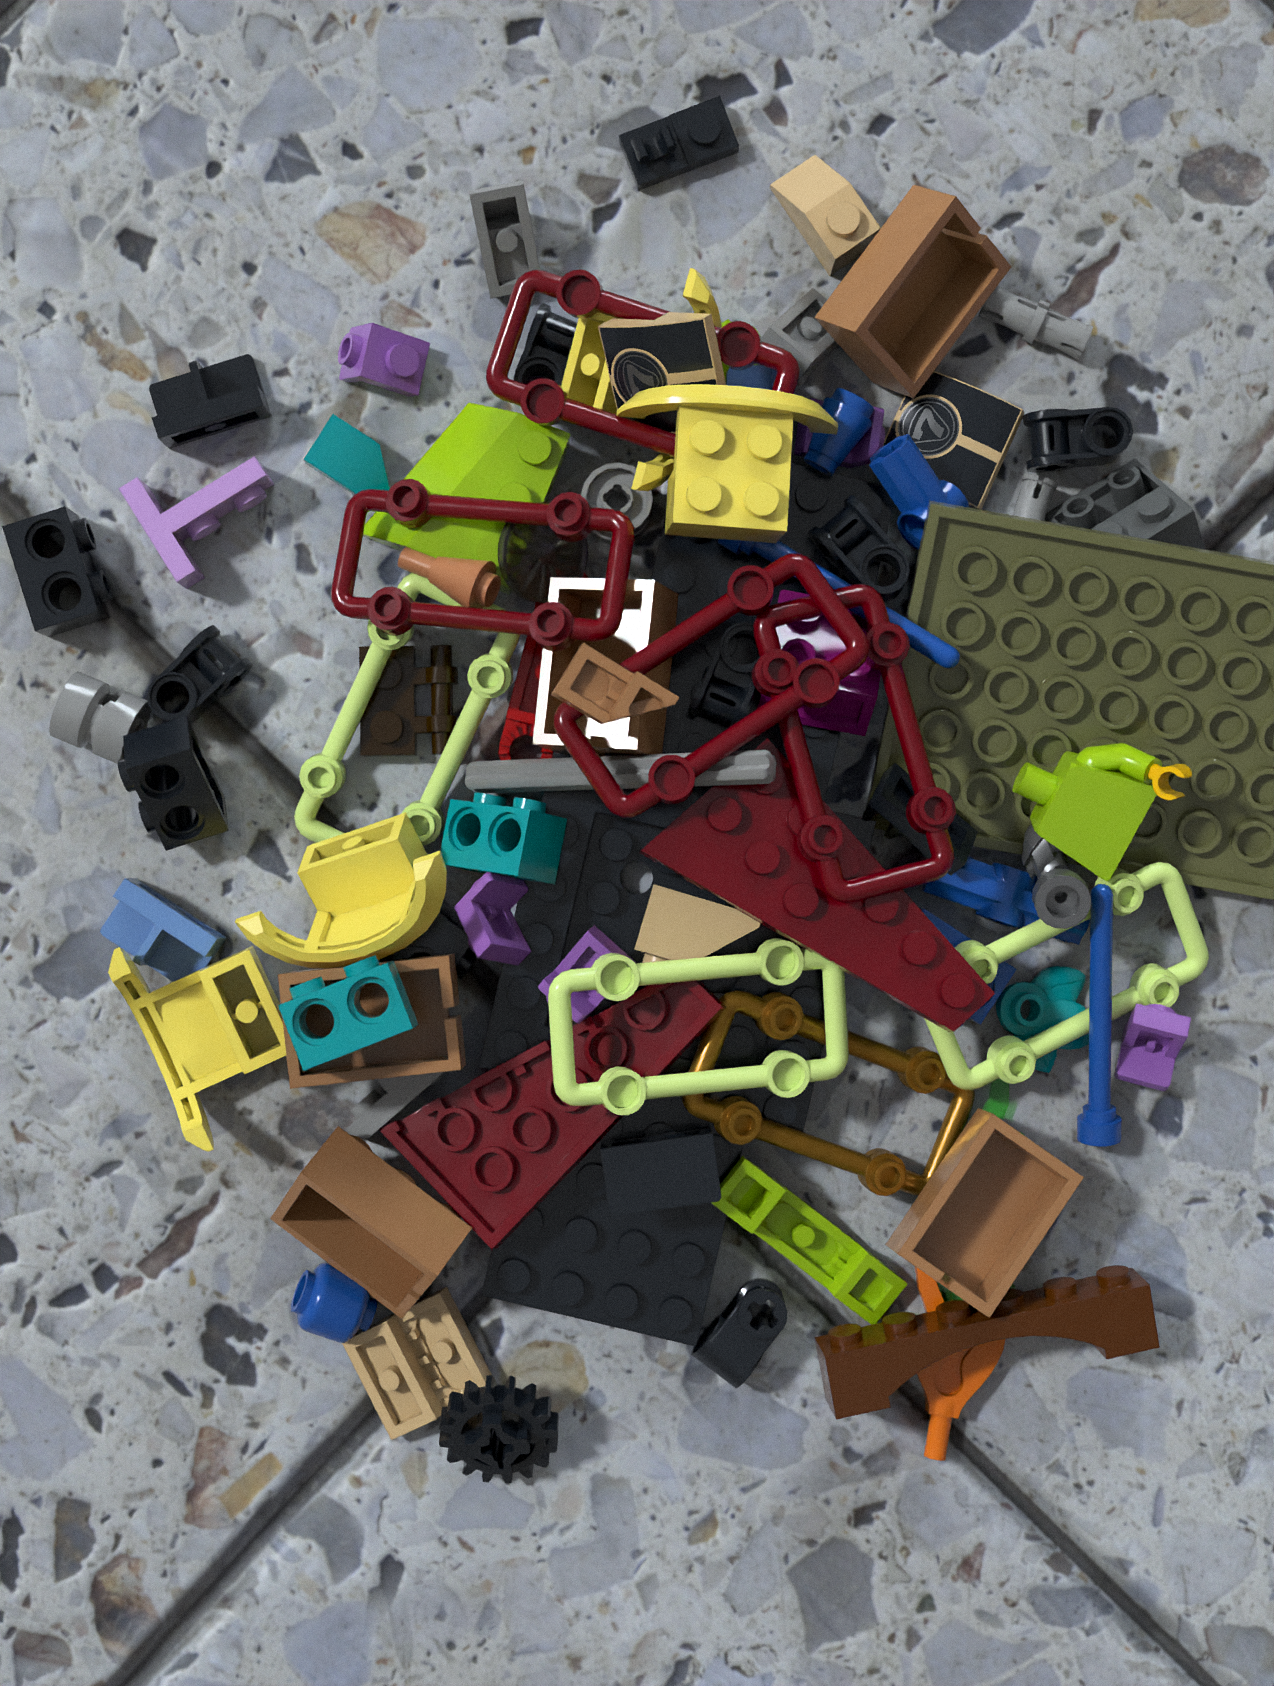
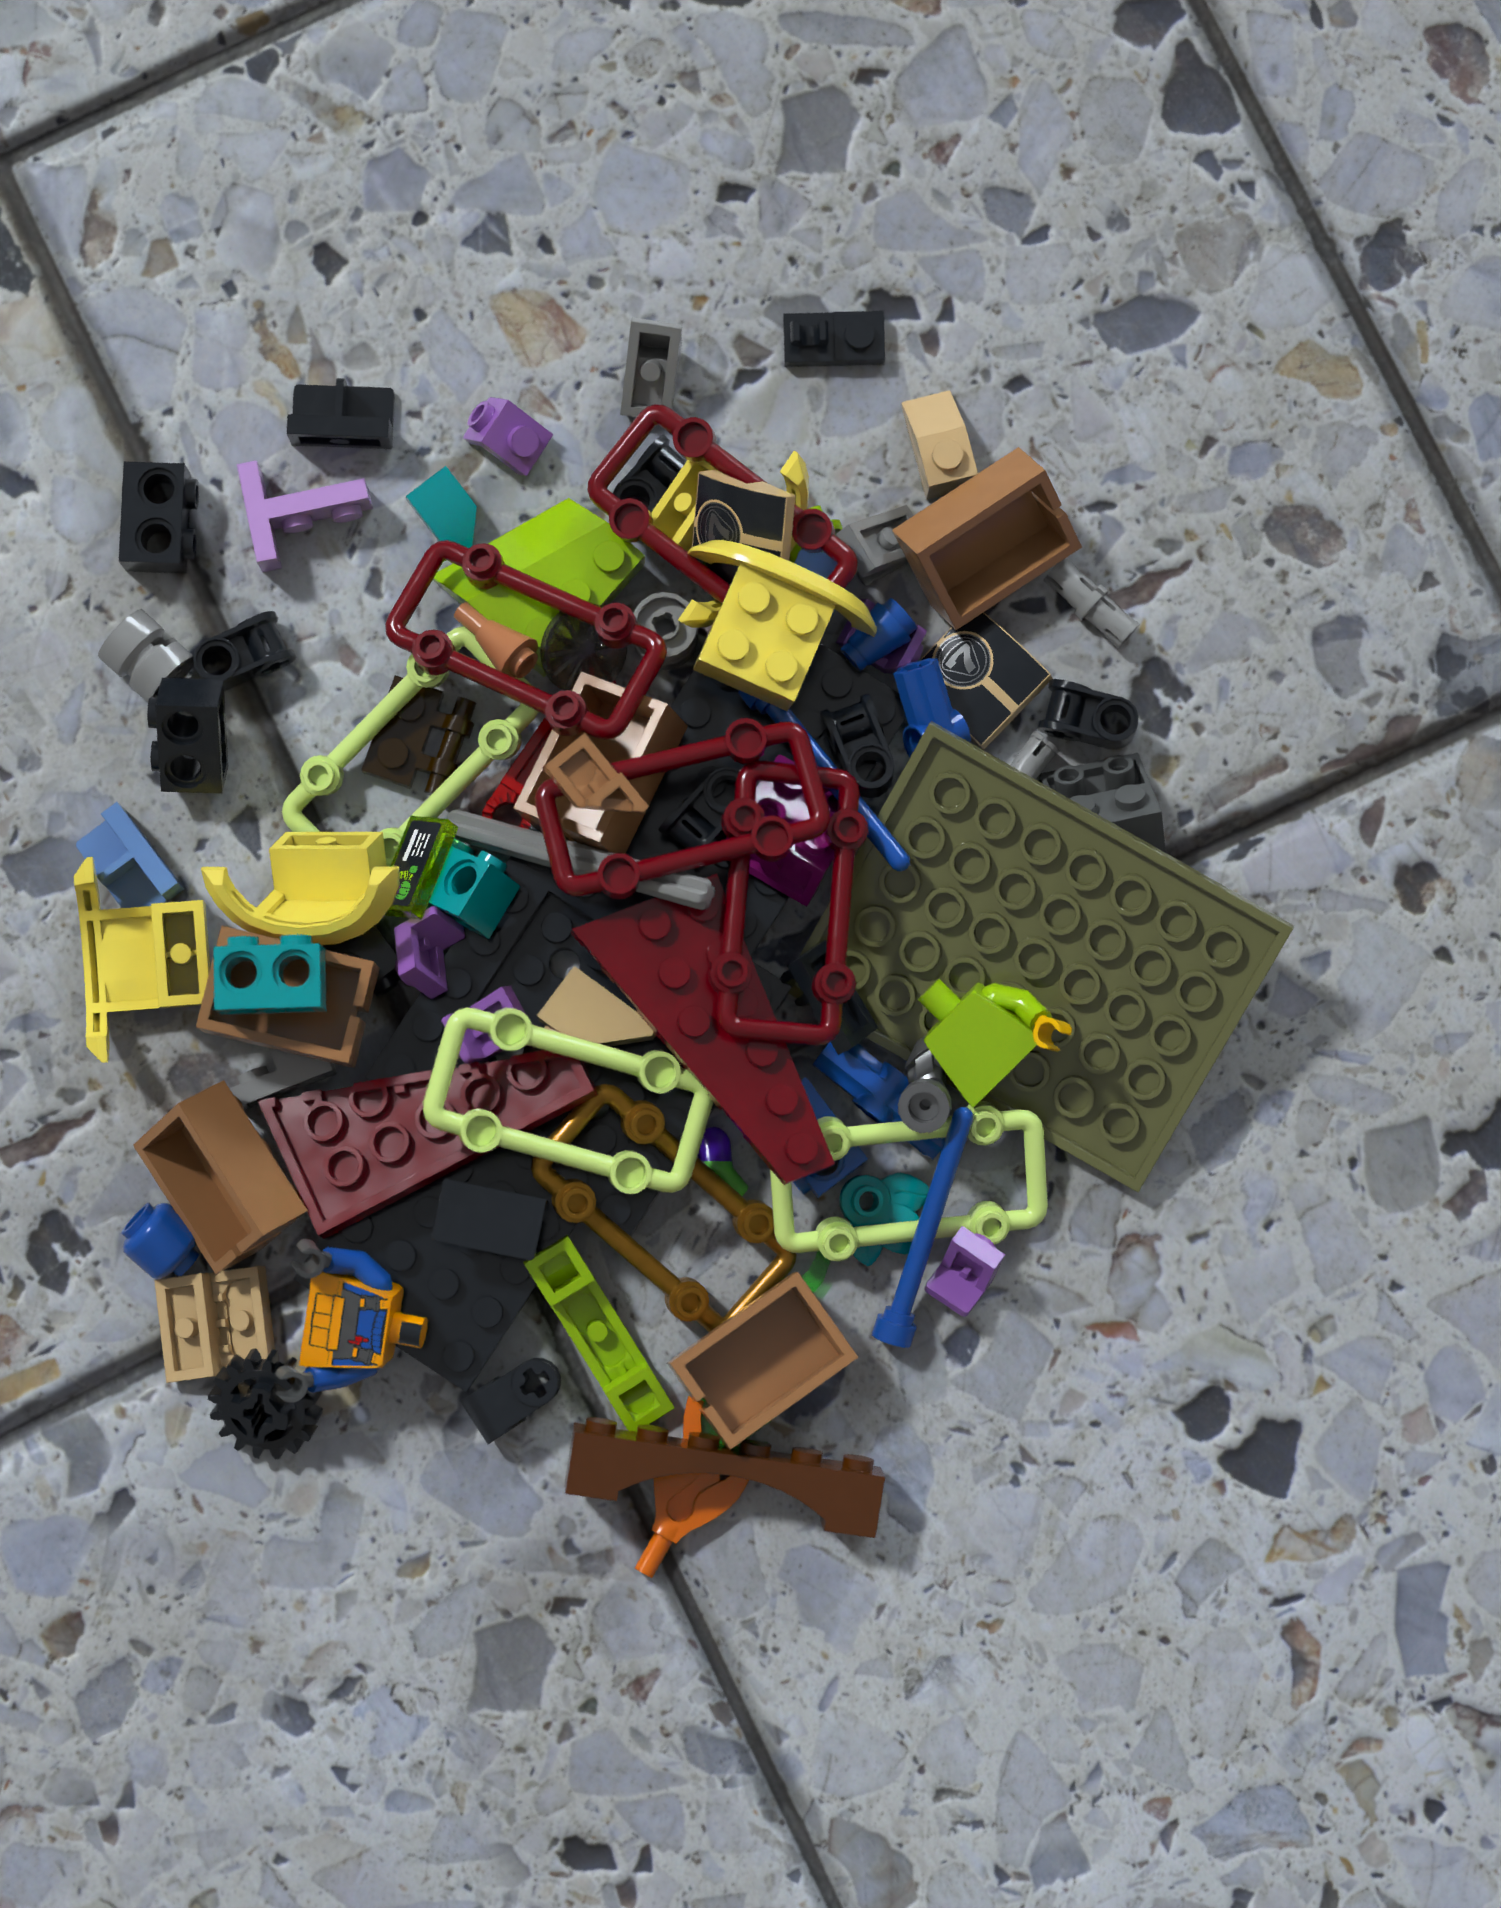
camera: 20 degrees right, 5 degrees down
(456, 831) = (420, 863): none -> tile
(555, 1327) = (348, 1321): none -> torso
(863, 1020) = (717, 1155): none -> arm

